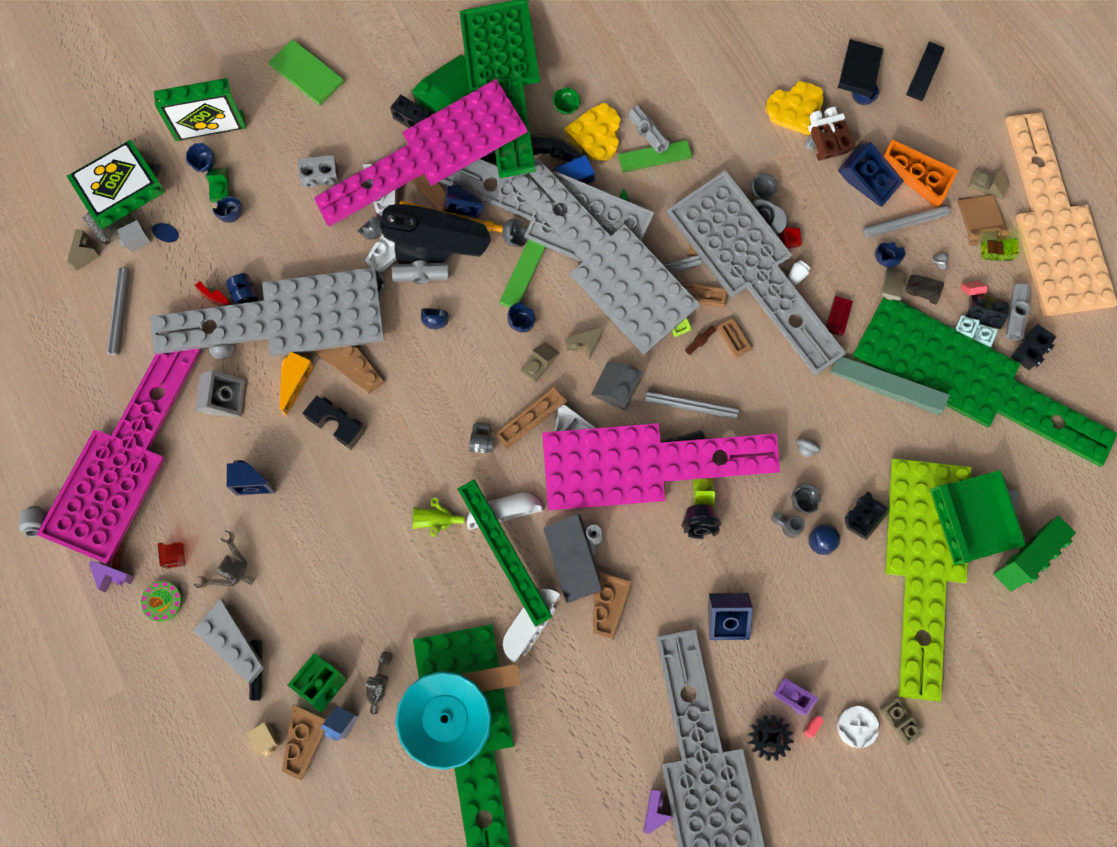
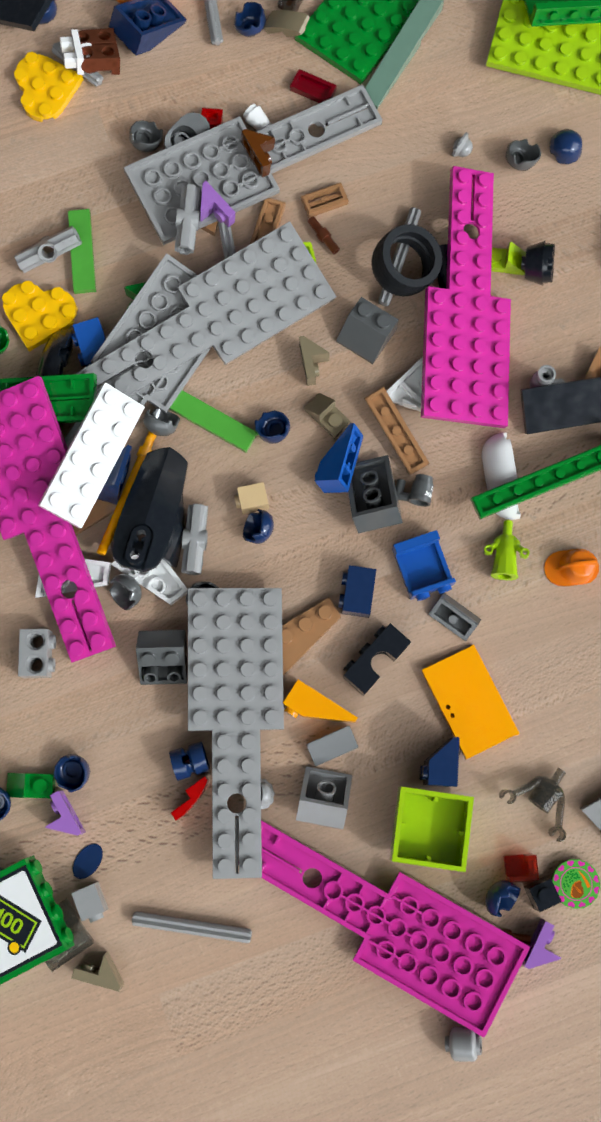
camera: 80 degrees left, 5 degrees up
(147, 539) = (501, 896): none -> dark blue hair
(150, 572) = (542, 894): none -> black brick
(193, 213) = (68, 821): none -> medium lavender slope
(195, 475) = (431, 829): none -> lime container
(262, 397) = (332, 745): none -> slope
(309, 502) = (473, 699): none -> light orange container
(323, 257) = (162, 657): none -> dark grey slope
(377, 483) = (455, 617): none -> dark grey slope
(389, 401) = (358, 591): none -> dark blue brick
(416, 453) = (423, 566): none -> blue panel
(429, 578) = (571, 567): none -> orange piece
(458, 310) = (251, 498): none -> tan brick
(468, 177) = (91, 456): none -> white plate
(472, 403) = (374, 495): none -> dark grey slope
(497, 374) = (338, 464): none -> blue slope
(686, 224) = (187, 219): none -> light grey piece
(699, 421) = (426, 248): none -> black tyre
(705, 239) = (213, 202): none -> medium lavender slope
(762, 269) = (257, 147): none -> reddish brown slope
(791, 527) = (549, 176): dark grey piece -> none
(866, 516) = (548, 99): black bracket -> none

